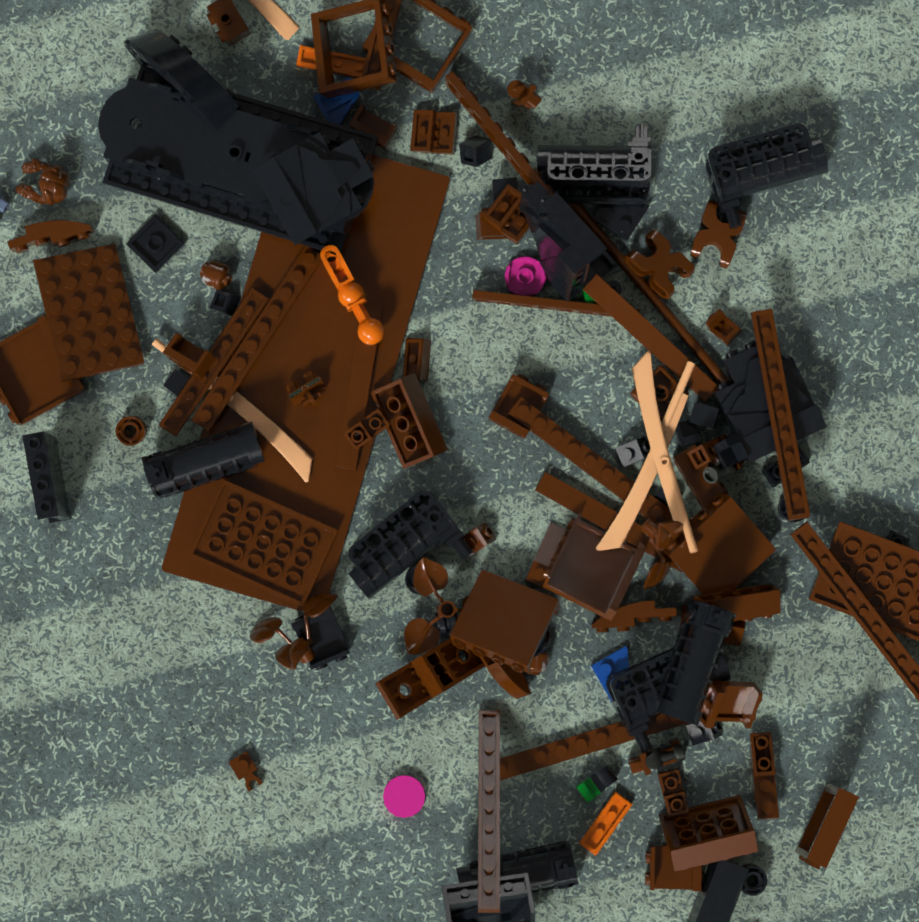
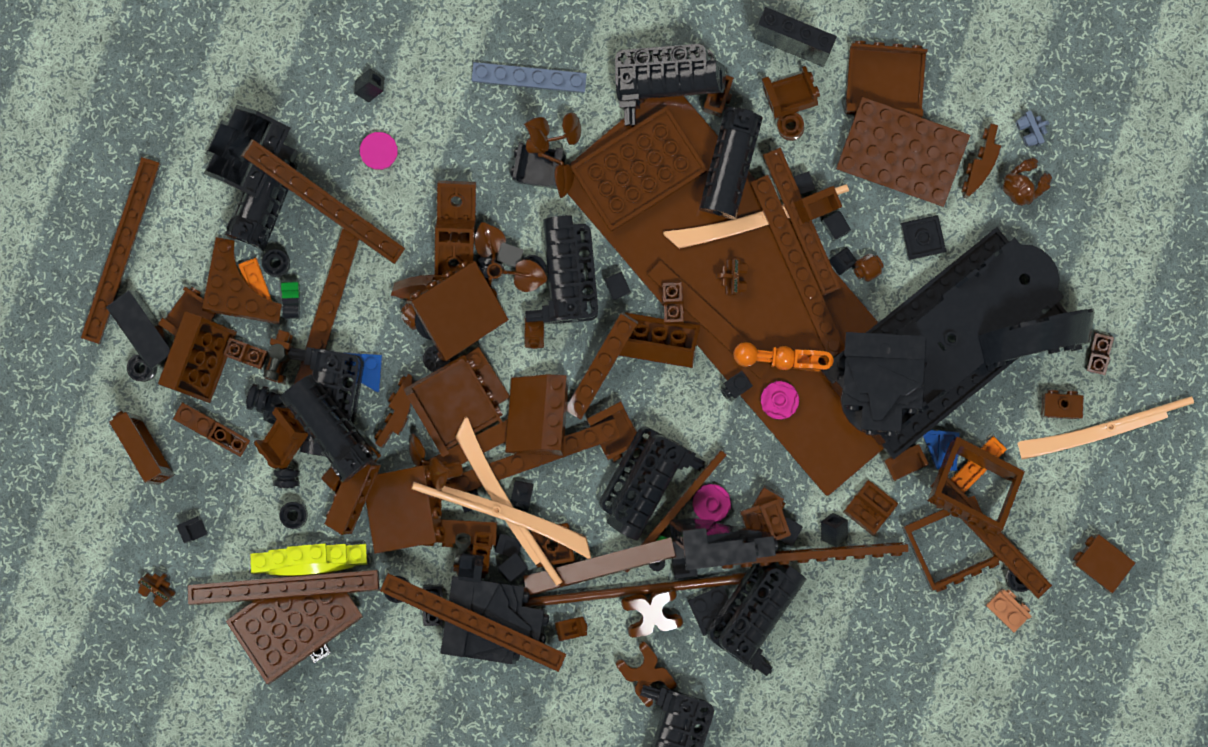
camera: 120 degrees right, 0 degrees up
(100, 449) = (791, 93): none -> reddish brown panel
(145, 515) = (716, 101): none -> reddish brown brick
(158, 18) = (1099, 353): none -> reddish brown slope
(162, 571) = (665, 77): none -> black piece
(197, 328) = (836, 226): none -> black panel
(243, 702) = (529, 77): none -> sand blue plate
(243, 768) = (479, 46): reddish brown plate -> none
(348, 846) = (369, 85): none -> black panel
(384, 491) = (617, 286): none -> black panel
(391, 275) = (779, 400): none -> dark pink tile
(405, 323) = (735, 386): none -> black bracket
(417, 358) = (702, 378): reddish brown slope -> none
(421, 608) = (509, 255): none -> dark grey panel
(467, 456) = (601, 365): none -> reddish brown plate
(523, 94) = (854, 594): reddish brown hips -> none
(546, 347) = (645, 481): none -> black piece
(551, 485) = (537, 415): none -> reddish brown slope
(565, 615) = (432, 360): none -> black wheel
(574, 830) = (269, 257): none -> black wheel
(628, 844) = (230, 294): none -> reddish brown plate
(706, 752) = (257, 398): none -> black wheel
(762, 676) = (286, 478): none -> black wheel
(780, 647) = (284, 515): none -> black wheel
(822, 606) = (308, 559): none -> neon yellow piece
(866, 731) = (192, 529): none -> black panel

